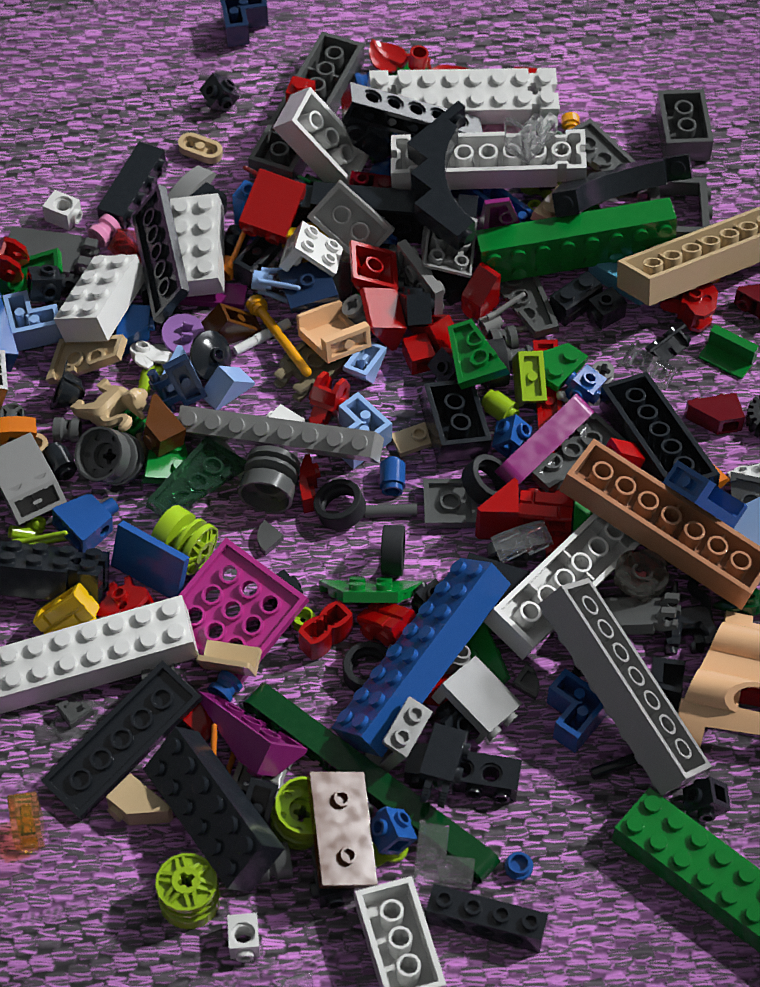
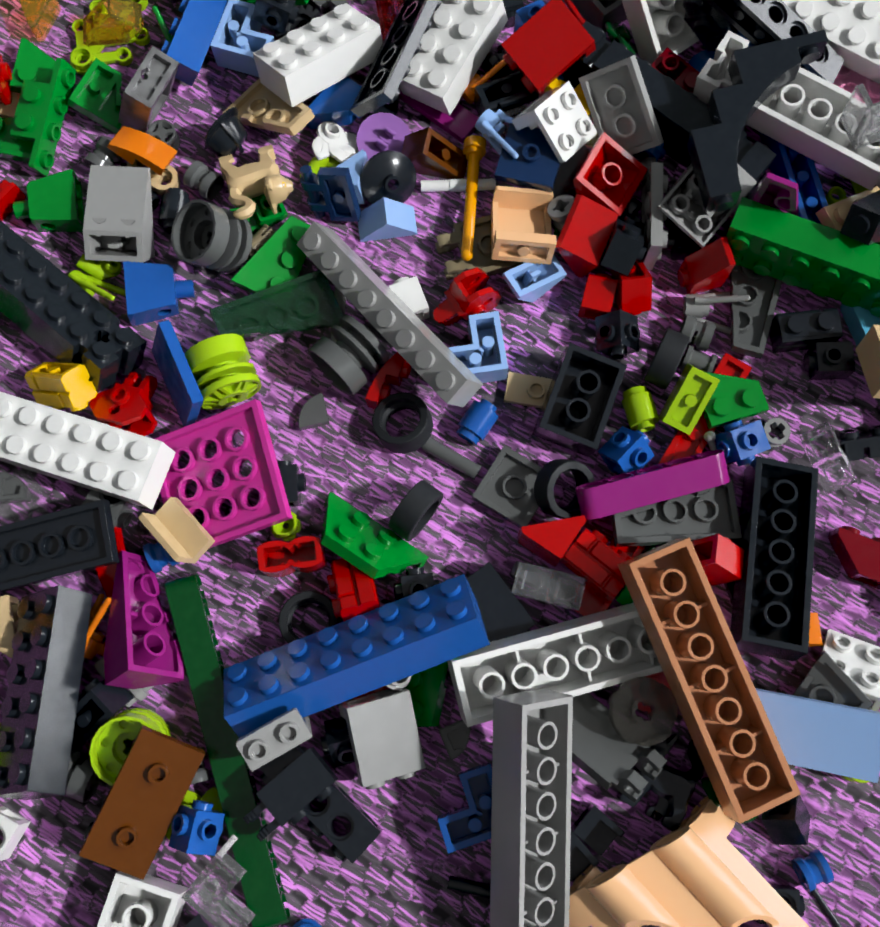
camera: 35 degrees right, 20 degrees up
(162, 428) = (278, 235): reddish brown slope -> none
(473, 356) = (641, 343): green wing -> none
(705, 494) = (768, 681): blue panel -> none

